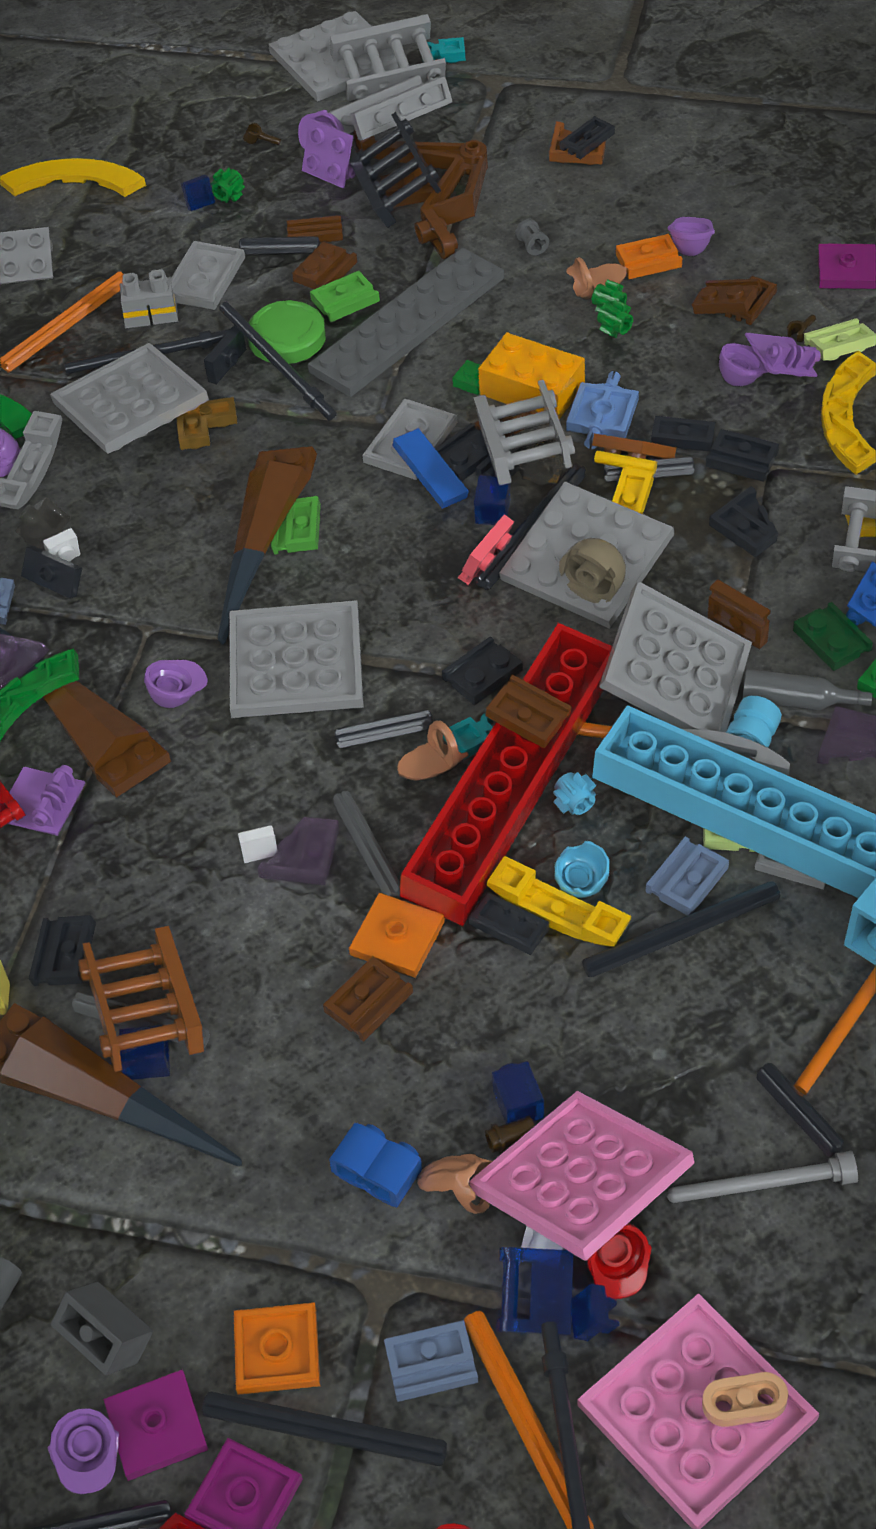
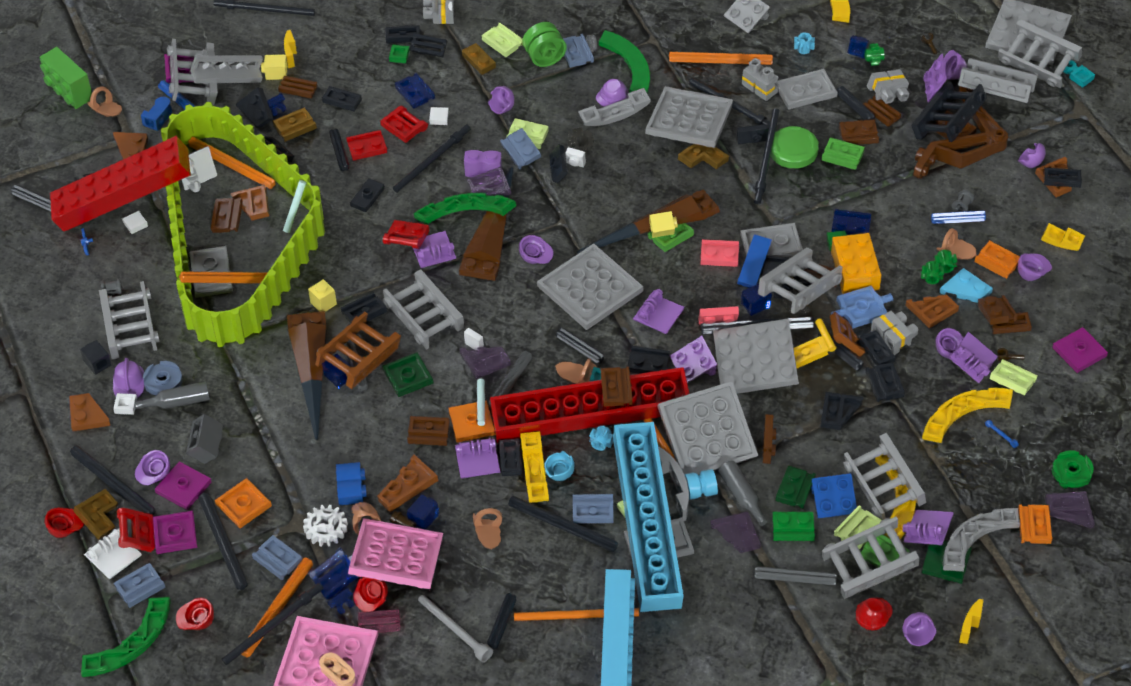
camera: 50 degrees right, 0 degrees up
(136, 234) = (804, 43): none -> medium azure gear
(140, 844) = (432, 294): none -> light grey fence
(238, 964) = (407, 374): none -> dark green plate
(284, 515) = (662, 224): none -> light yellow brick
(292, 197) = (889, 86): none -> light grey hips
(375, 497) = (719, 253): none -> coral plate
(381, 899) = (481, 402): none -> light aqua bar
(405, 322) = (853, 189): dark grey plate -> none
(411, 612) = (658, 312): none -> medium lavender hinge
(443, 1084) = (409, 483): none -> dark orange wing
(447, 1250) = (325, 525): none -> white gear
(456, 348) = (851, 222): none -> clear blue plate
(472, 966) = (477, 458): none -> medium lavender hinge
(528, 145) = (1033, 157): none -> medium lavender hair
(529, 617) = (695, 359): none -> medium lavender hinge
(547, 255) = (956, 217): none -> axle
(593, 569) = (735, 362): dark tan cylinder -> none
(618, 1028) = (486, 529): none -> nougat piece
(661, 305) = (966, 286): none -> medium azure wing
(662, 395) = (894, 331): none -> light grey hips
(668, 351) = (933, 309): none -> dark orange wing
(673, 188) = (1066, 239): none -> yellow slope
(688, 1256) = (379, 618): none -> clear pink tile

